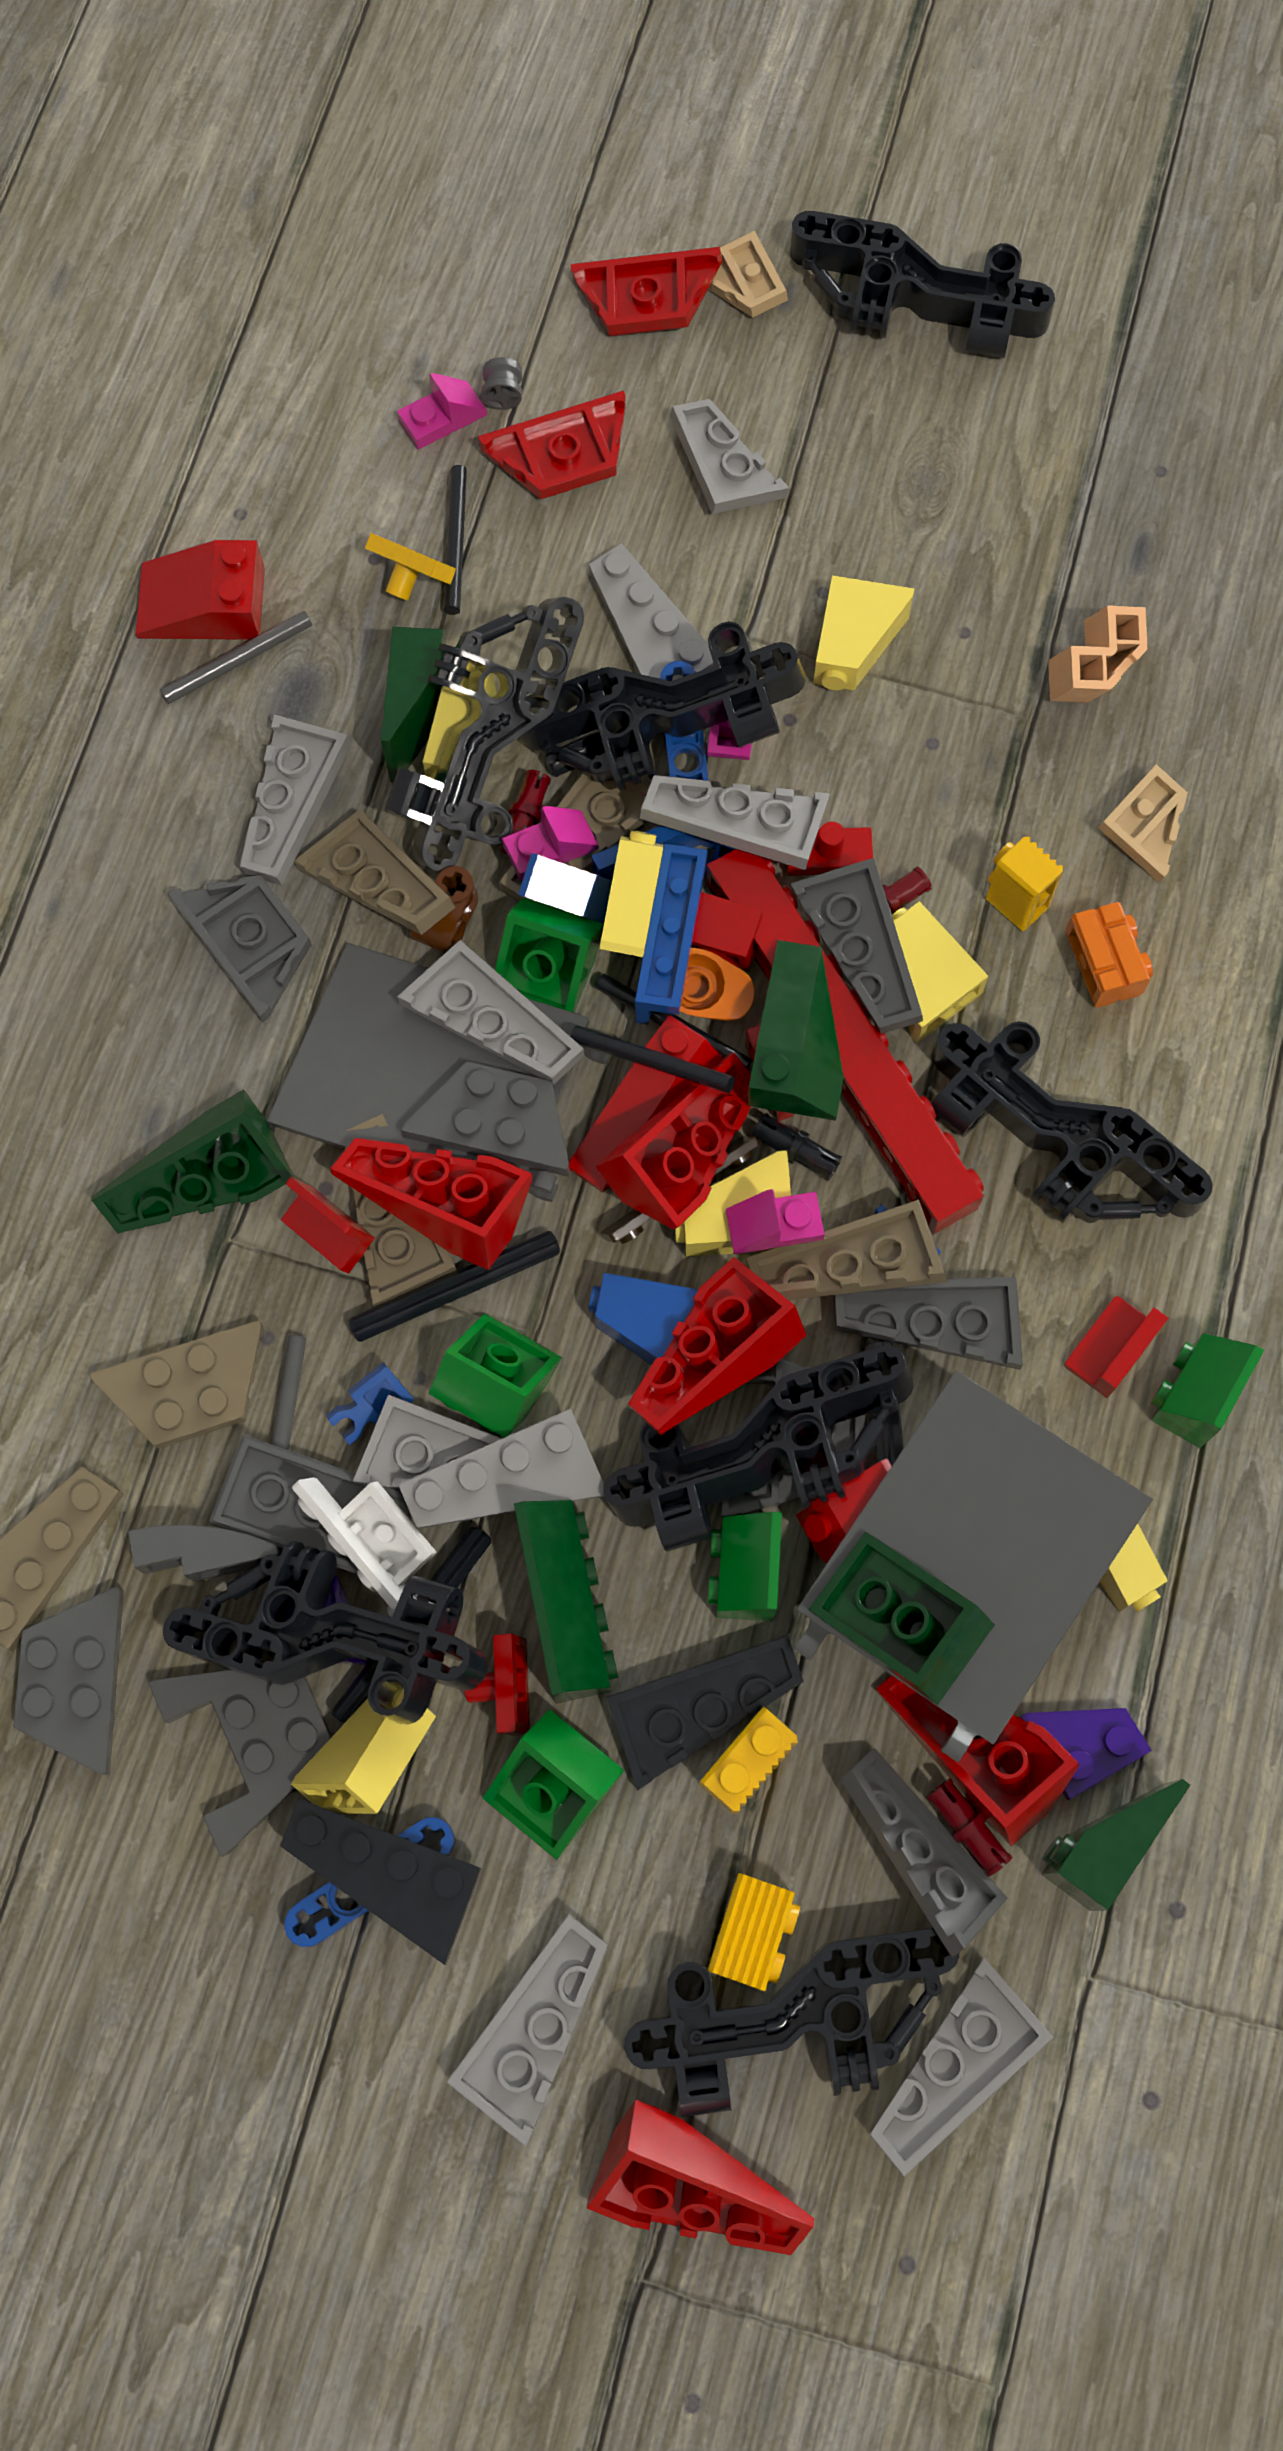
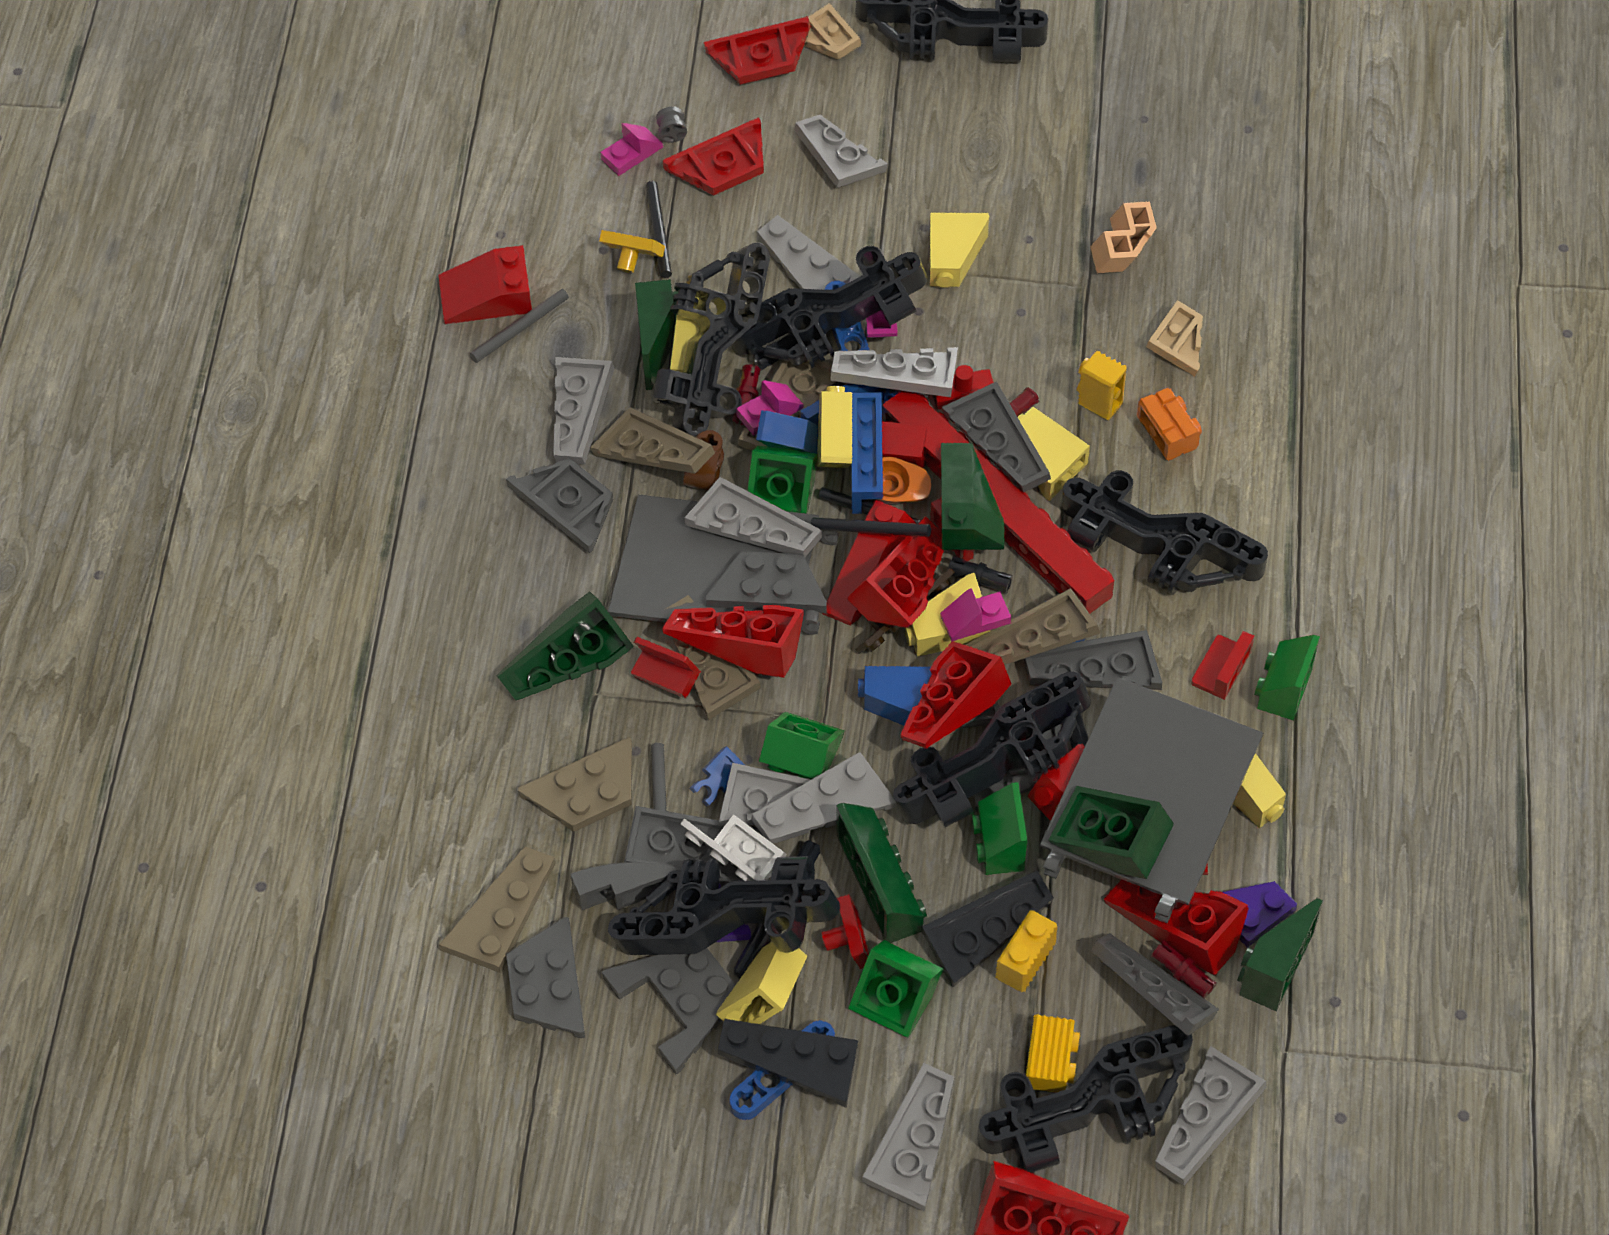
camera: 10 degrees left, 15 degrees down
(453, 1287) = (760, 697): black axle -> none

